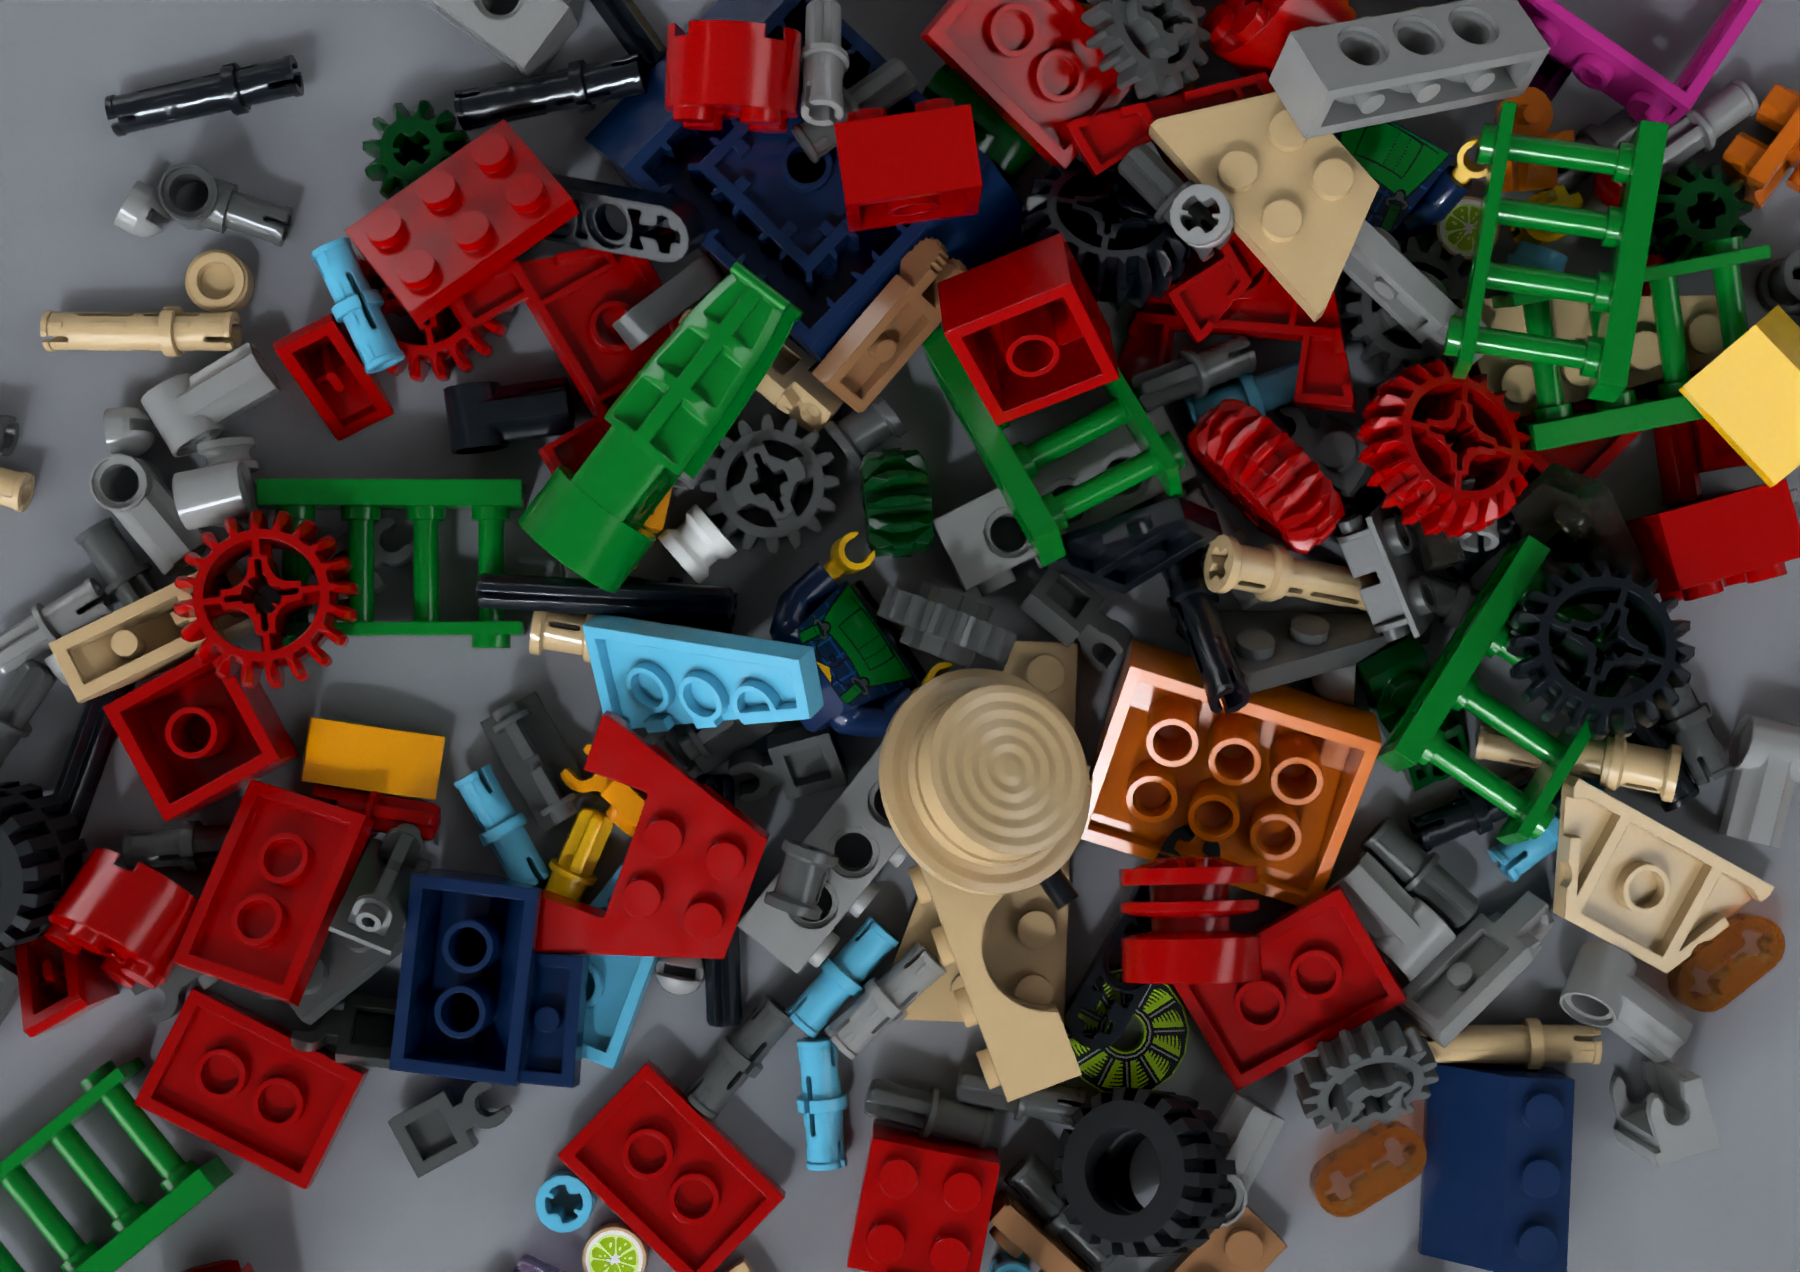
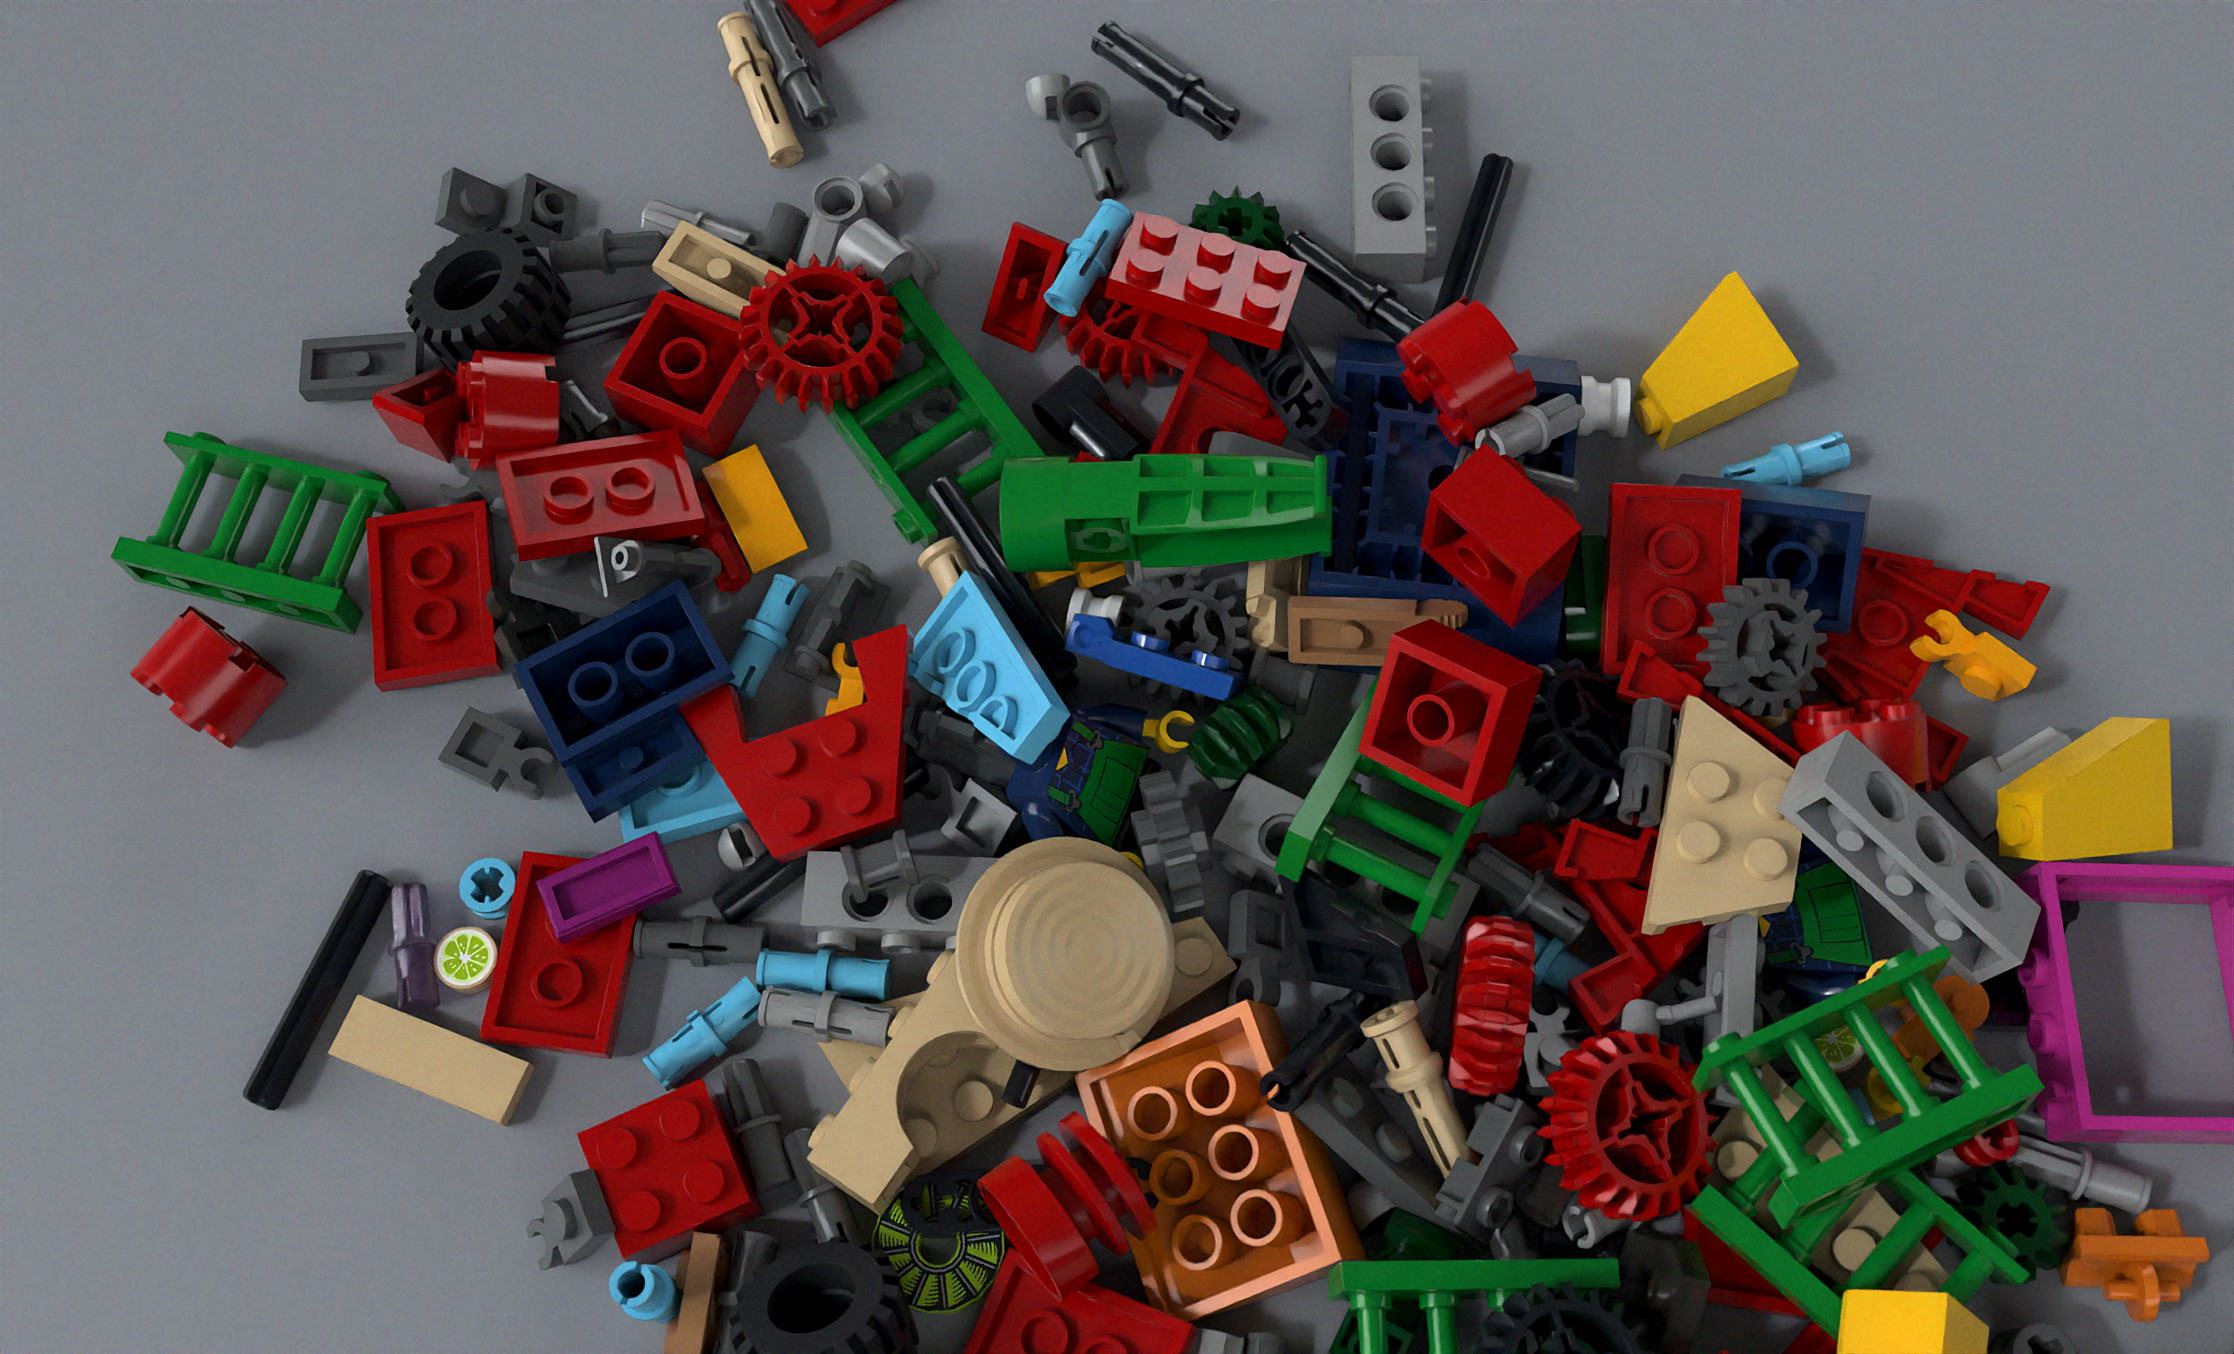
camera: 60 degrees right, 20 degrees down
(163, 331) = (975, 166): tan pin -> none
(198, 405) = (947, 224): light grey piece -> none
(219, 282) = (1037, 179): tan tile -> none
(580, 854) = (783, 705): yellow axle -> none
(644, 1107) = (609, 887): none -> magenta tile
(787, 529) = (1149, 657): none -> blue hinge
(1207, 196) = (1642, 757): light grey bush -> none
(1368, 370) = (1648, 1016): none -> light grey hand

